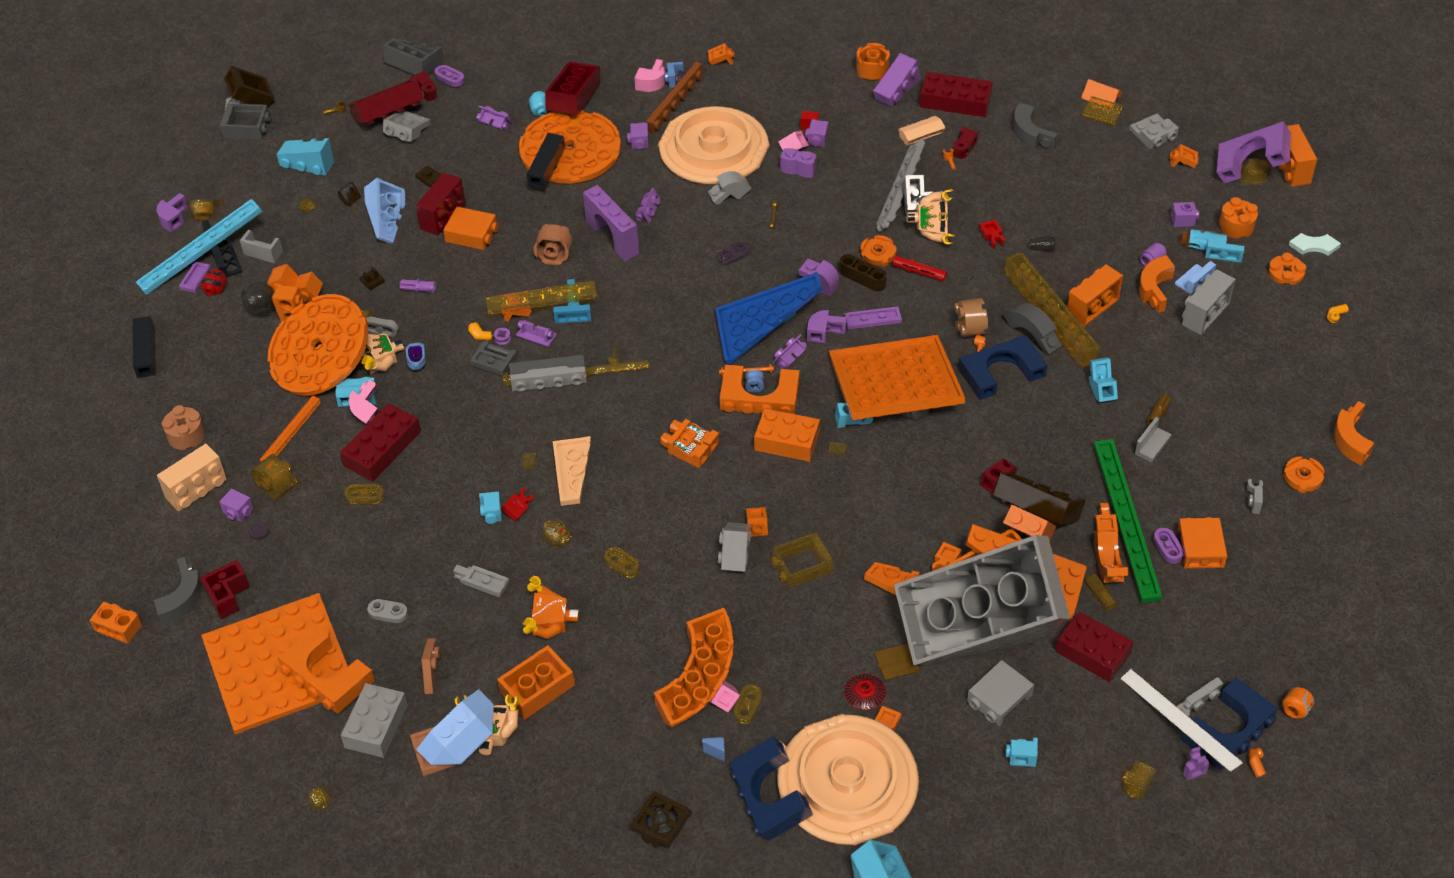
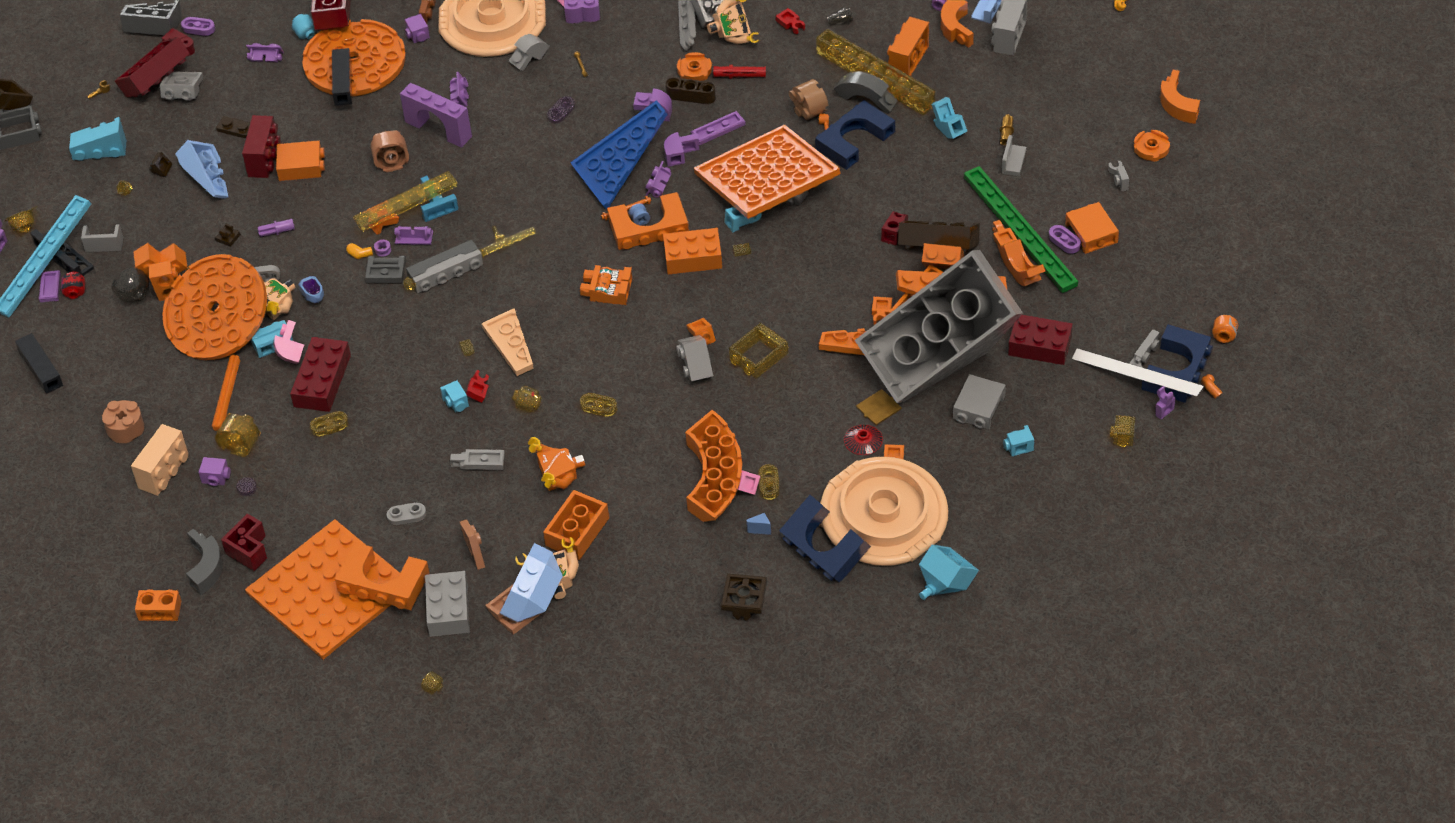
camera: 20 degrees left, 0 degrees up
(1101, 592) = (1025, 294): clear yellow axle -> none

